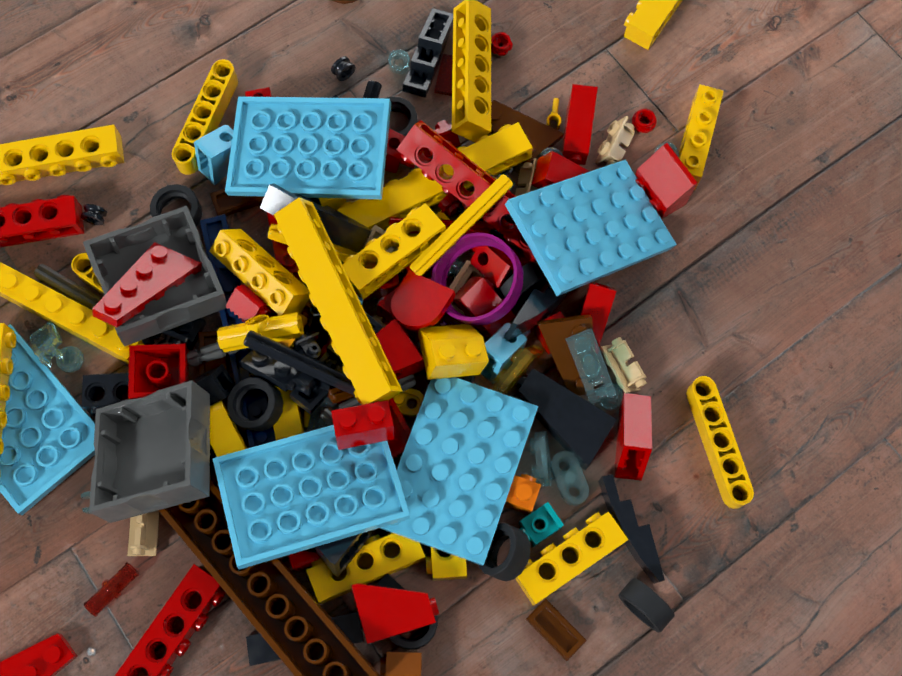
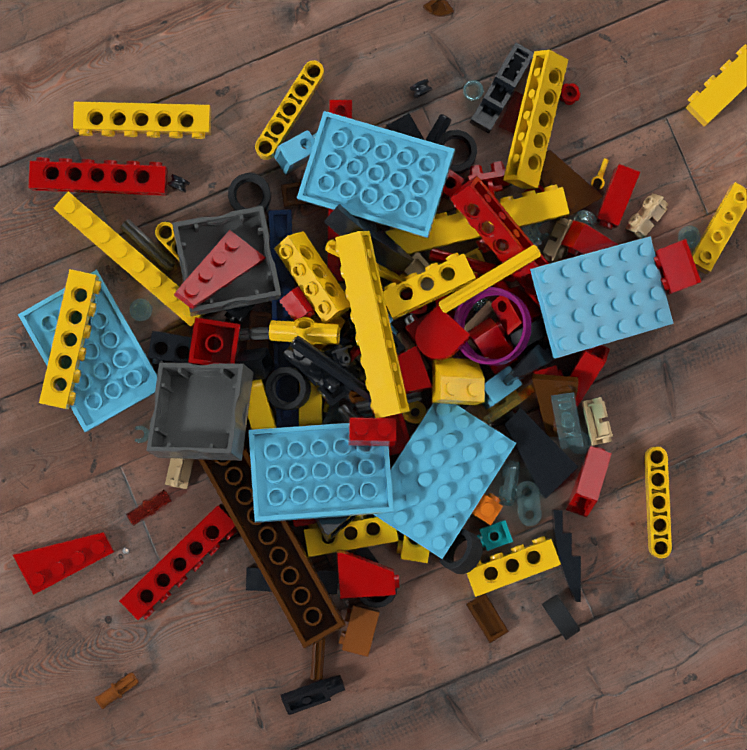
camera: 15 degrees right, 15 degrees up
(45, 343) = (123, 293): clear light blue plate -> none
(646, 115) = (685, 197): red plate -> none

